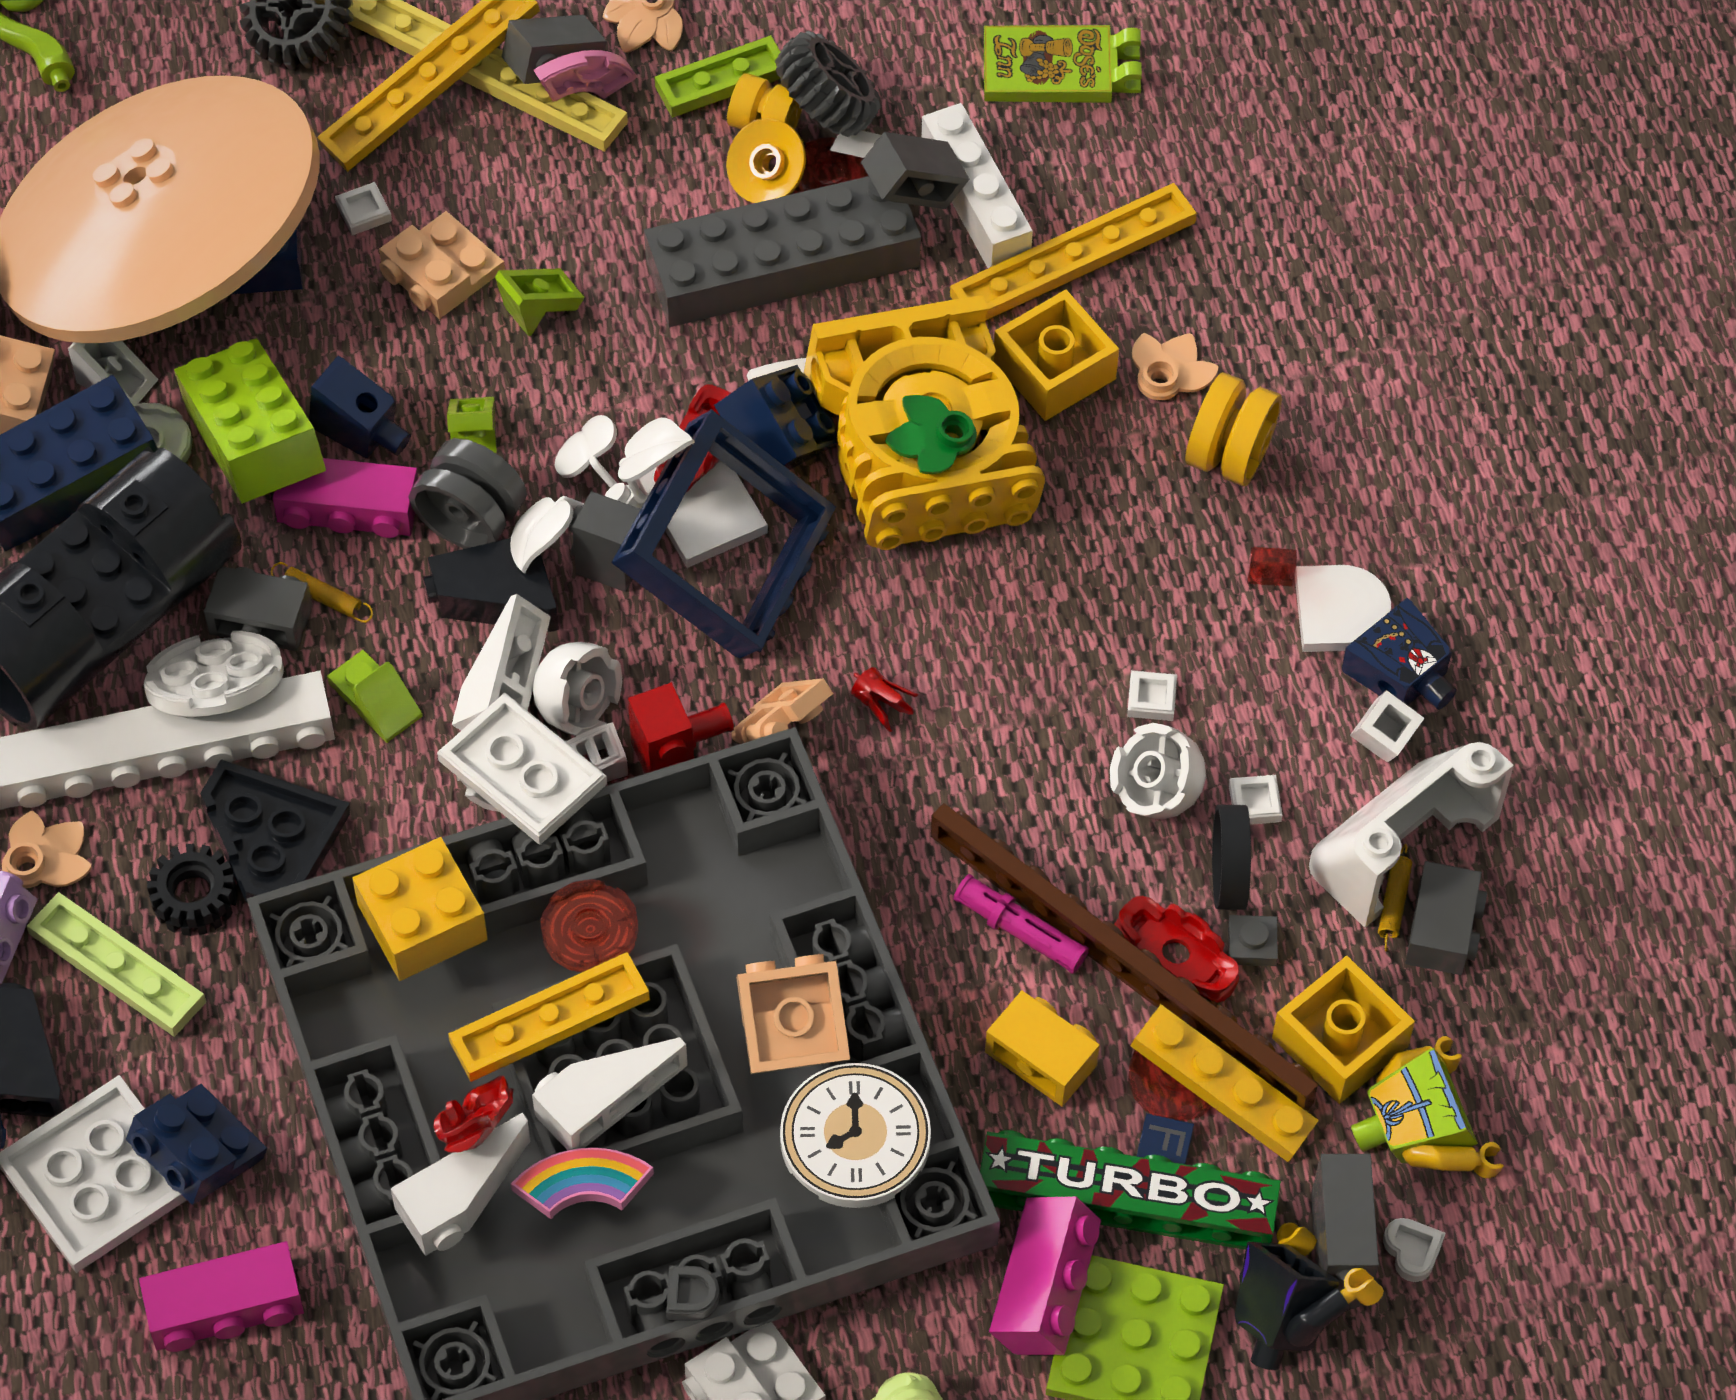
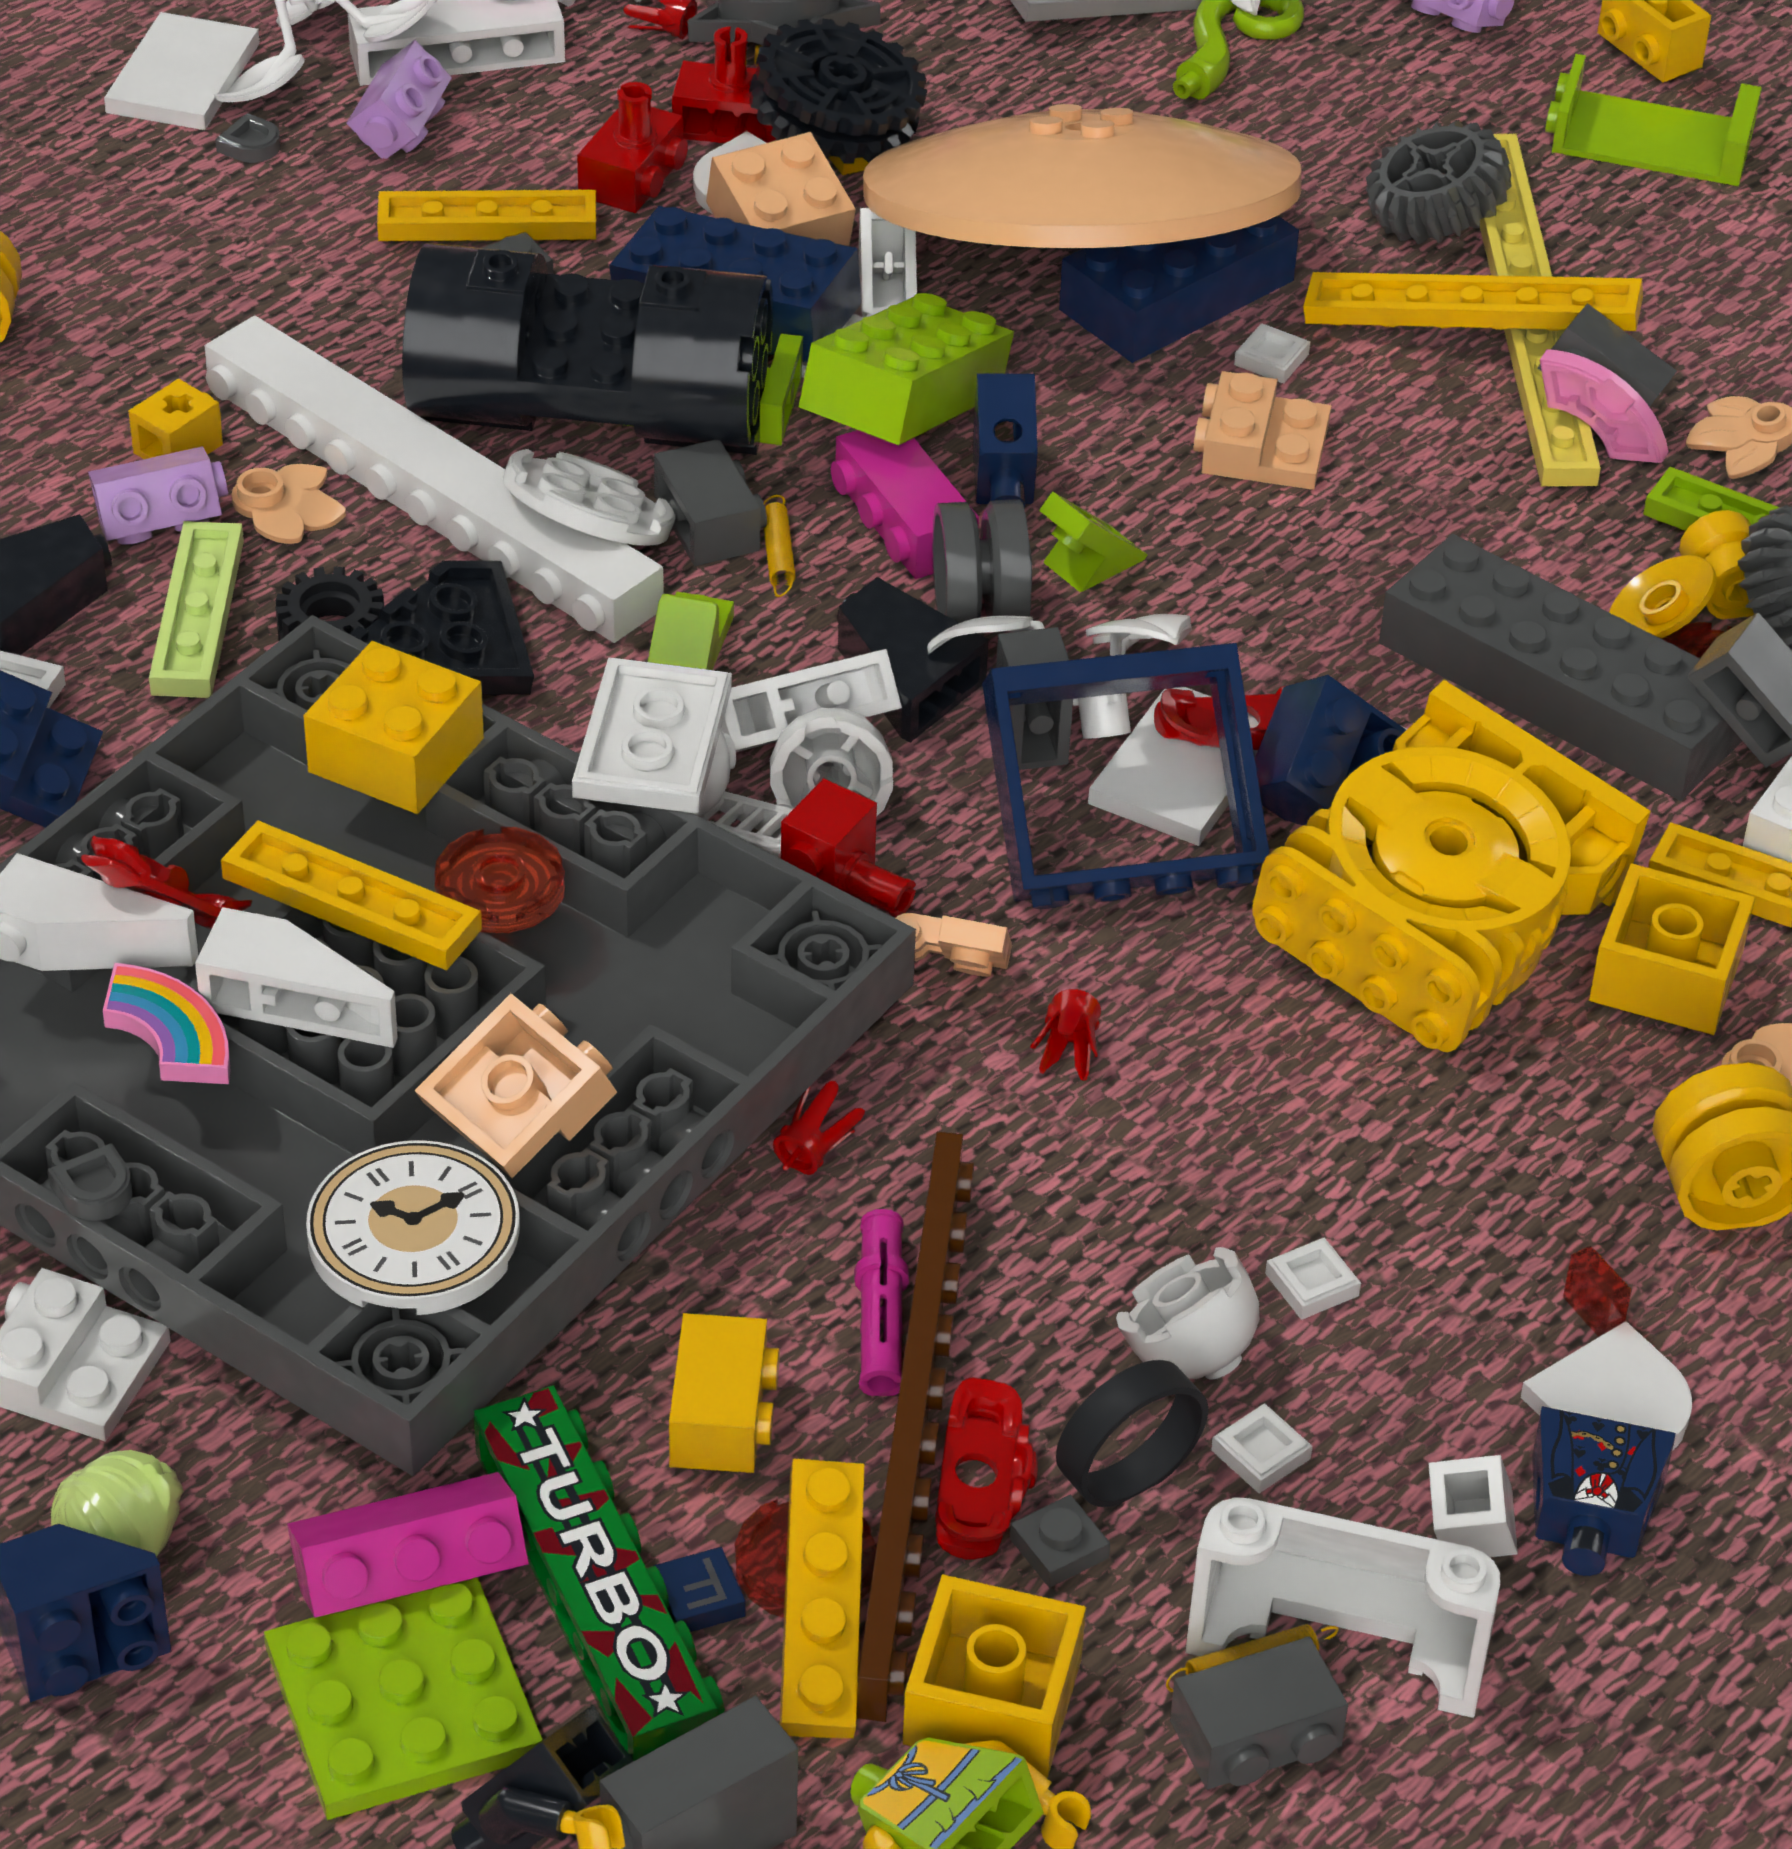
camera: 55 degrees right, 15 degrees down
(534, 292) = (1290, 500): lime slope -> none
(870, 877) = (802, 1143): none -> red piece
(927, 436) = (1406, 848): green plate -> none

